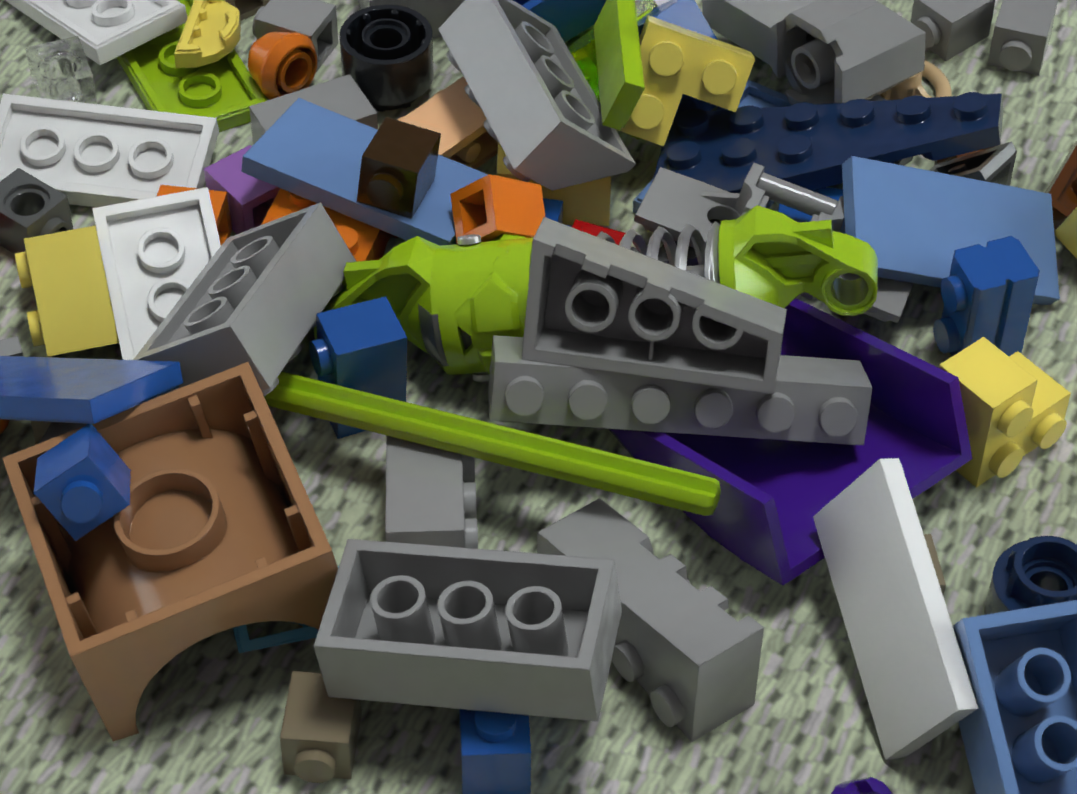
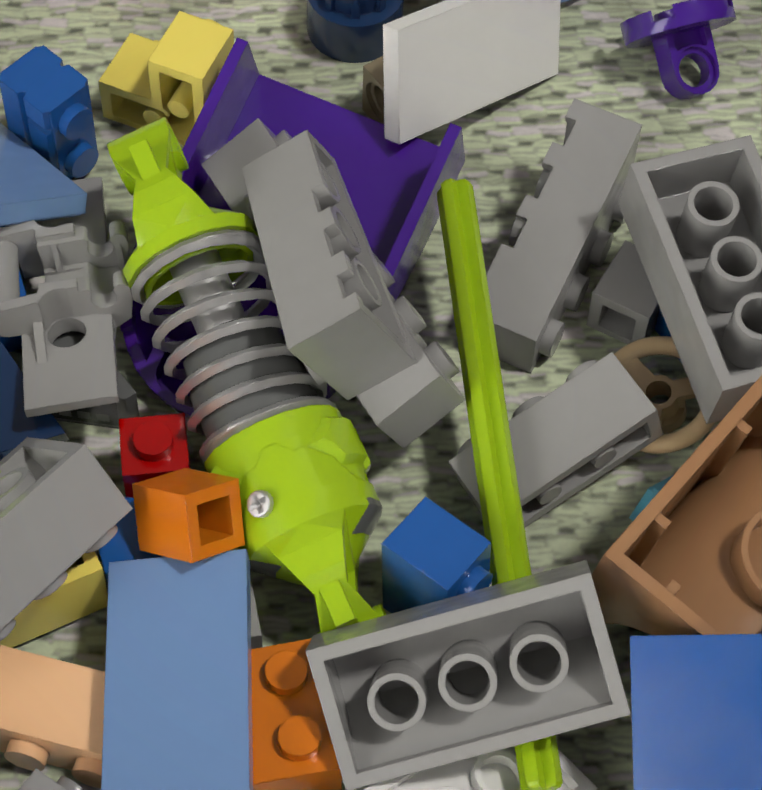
camera: 120 degrees left, 10 degrees up
(398, 167) = (195, 617): dark brown brick -> none

